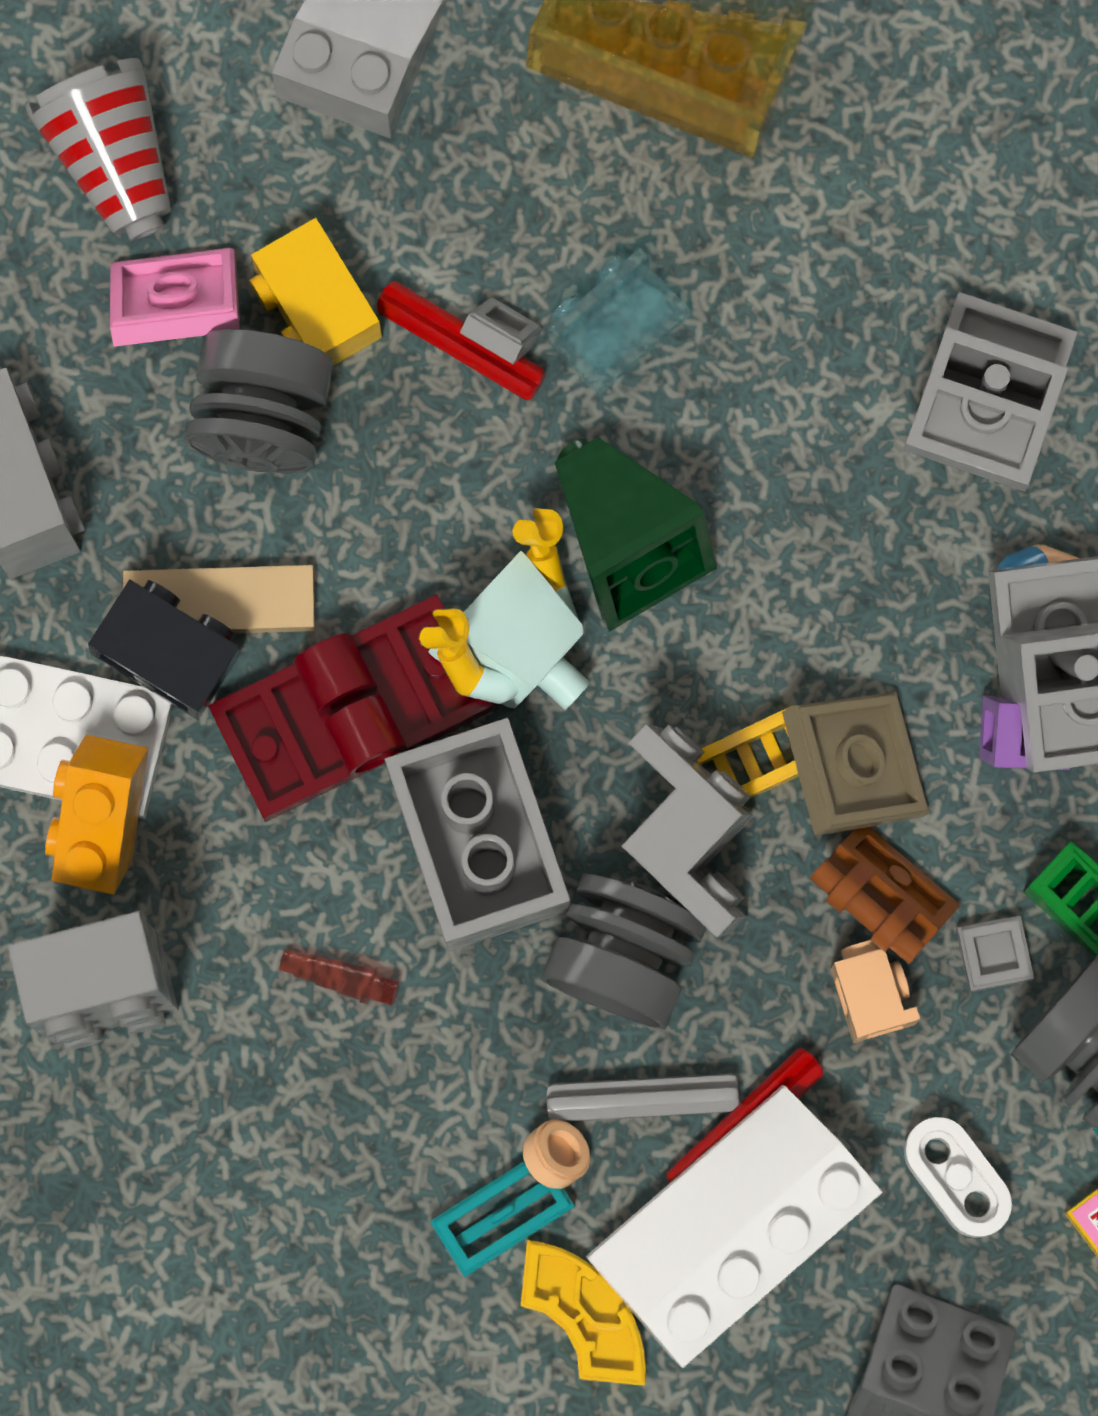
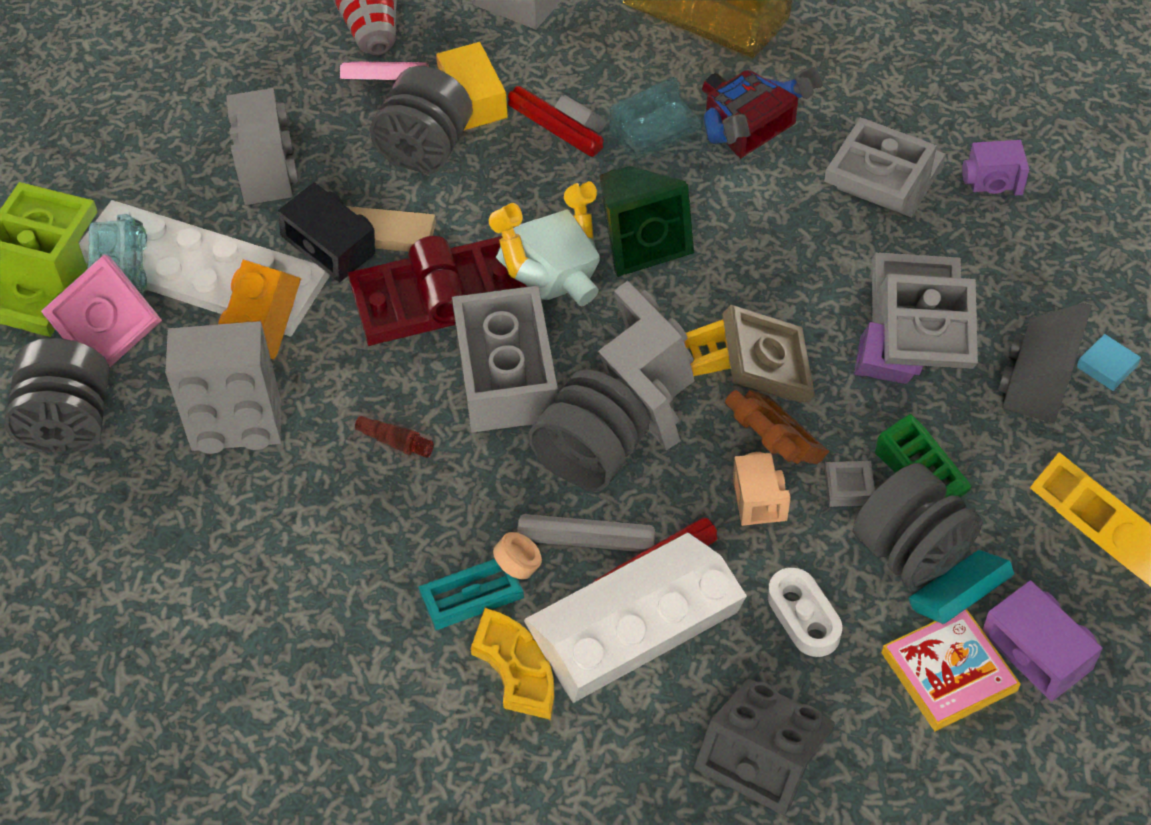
camera: 10 degrees right, 25 degrees down
(766, 282) = (753, 108): none -> torso

